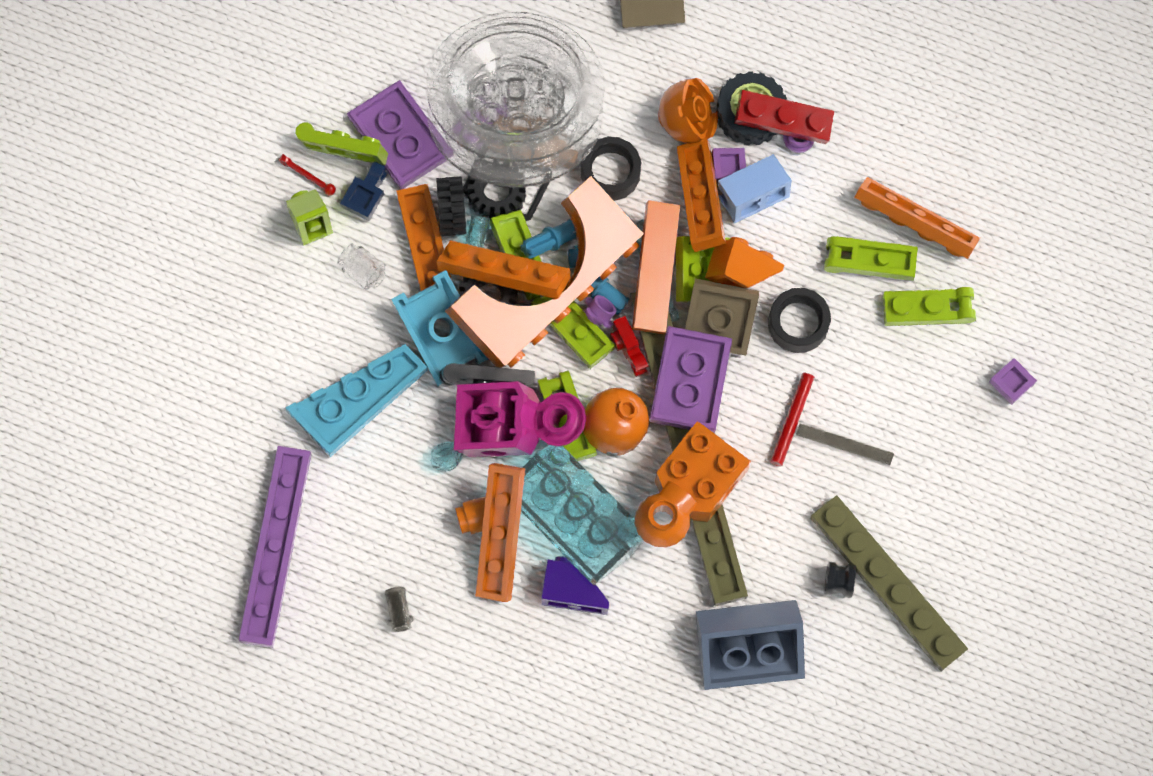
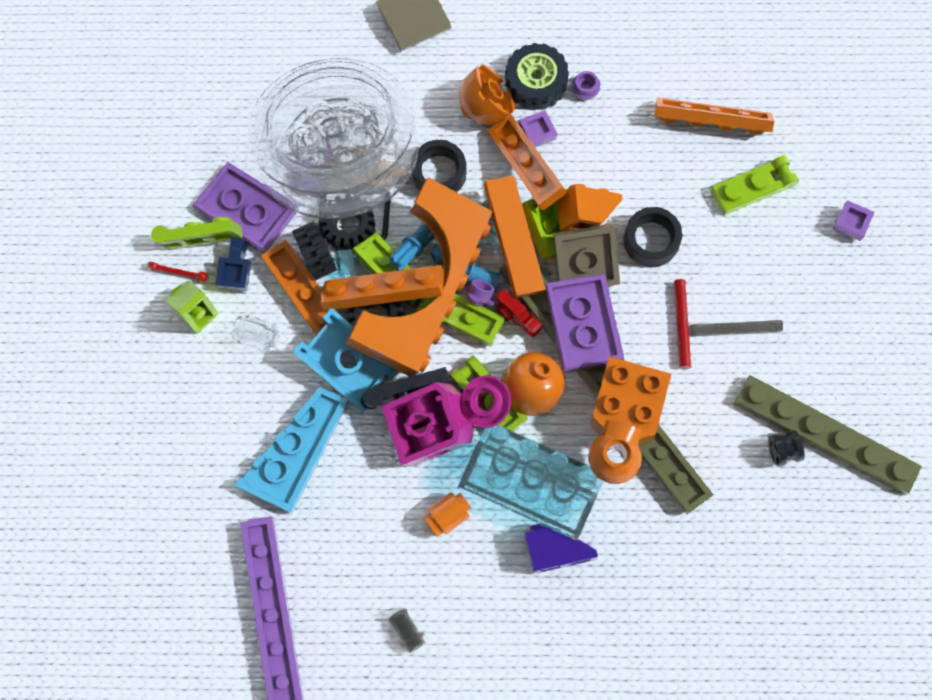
camera: 15 degrees left, 0 degrees up
(445, 457) = (394, 474): clear light blue plate -> none
(500, 532) = (473, 524): orange plate -> none
(751, 644) = (734, 537): sand blue slope -> none
(754, 188) = (568, 140): light blue hinge -> none
(784, 117) = (569, 71): red plate -> none
(871, 258) = (690, 162): lime plate -> none

